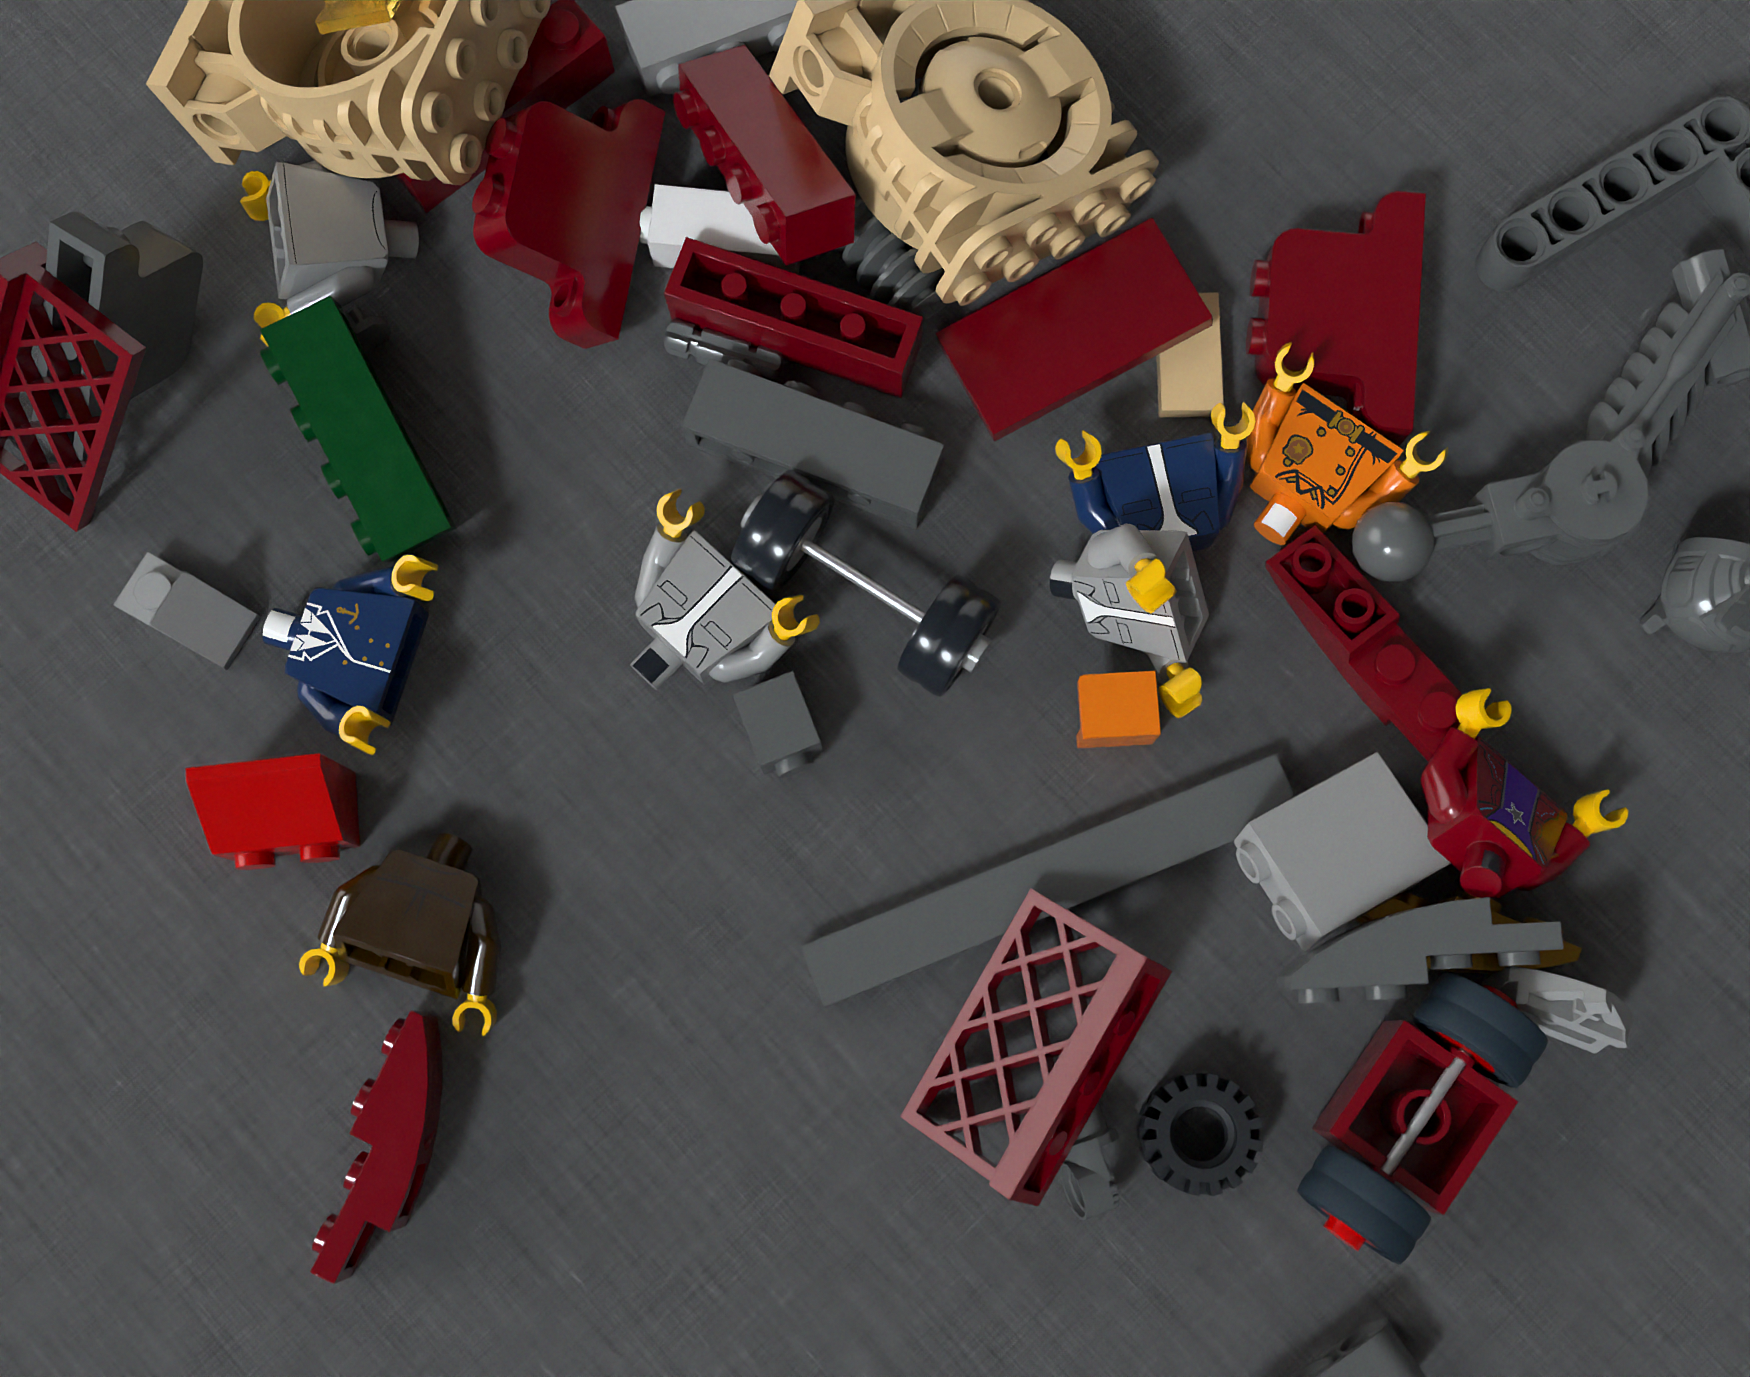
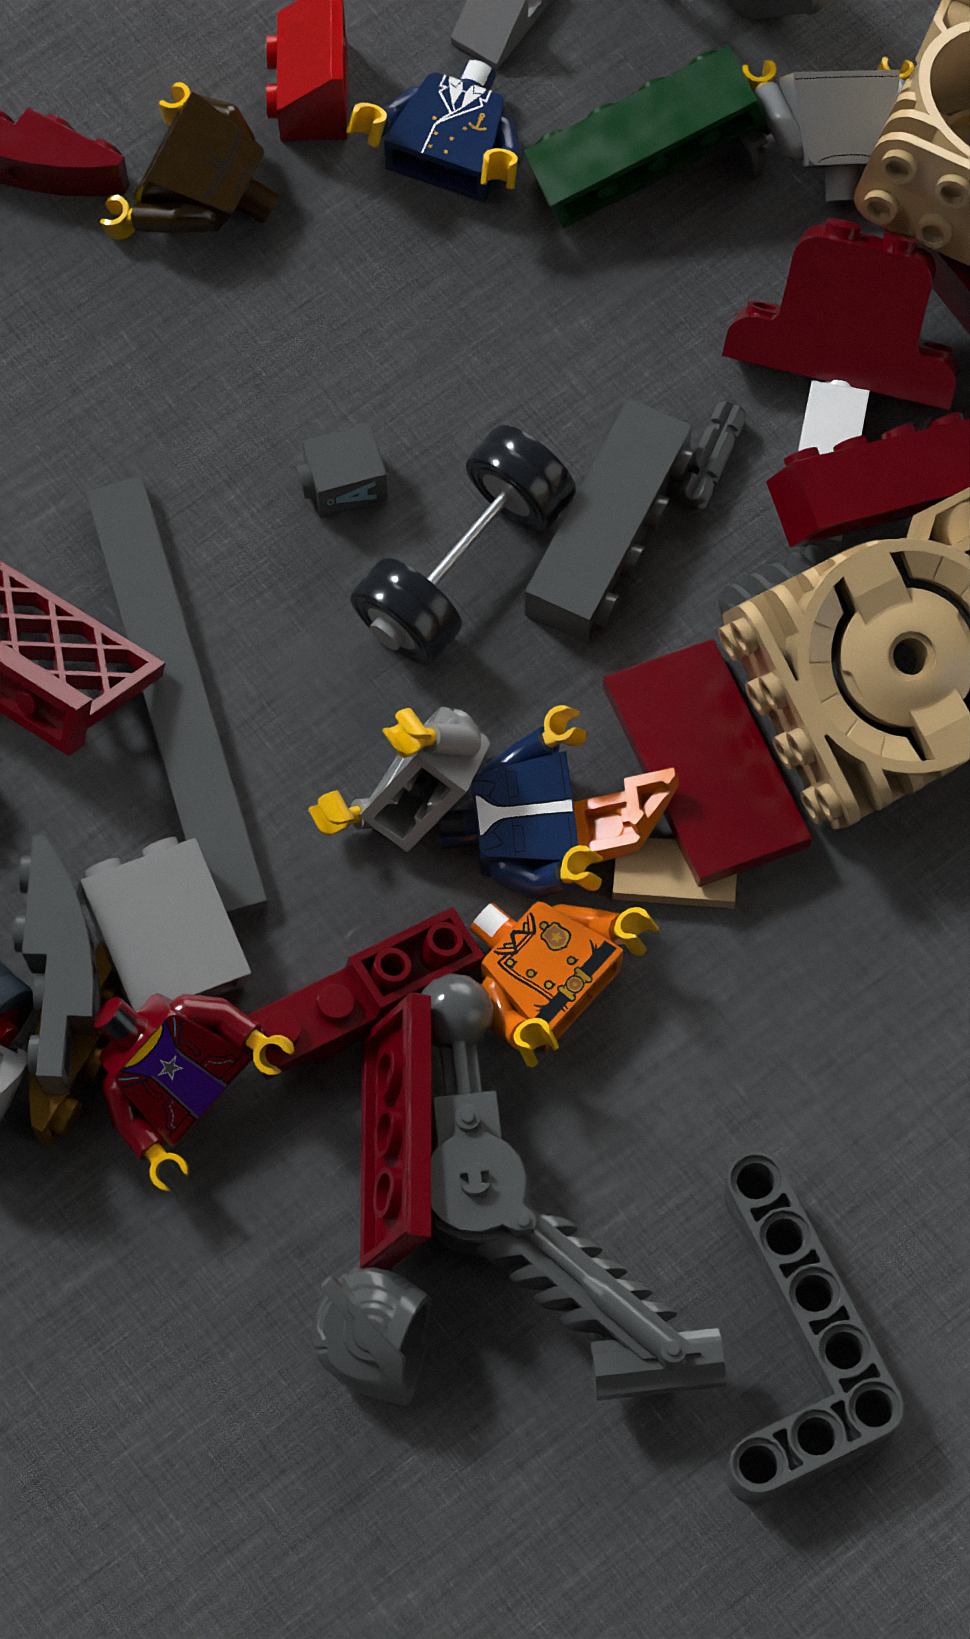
camera: 95 degrees right, 10 degrees down
(705, 608) = (453, 408): light grey torso -> none
(795, 316) = (728, 506): dark red brick -> none
(1118, 709) = (323, 757): orange panel -> none
(1151, 398) = (624, 820): none -> orange slope
(1352, 307) = (700, 1018): dark red brick -> none
(1537, 582) = (396, 1134): none -> dark red tile

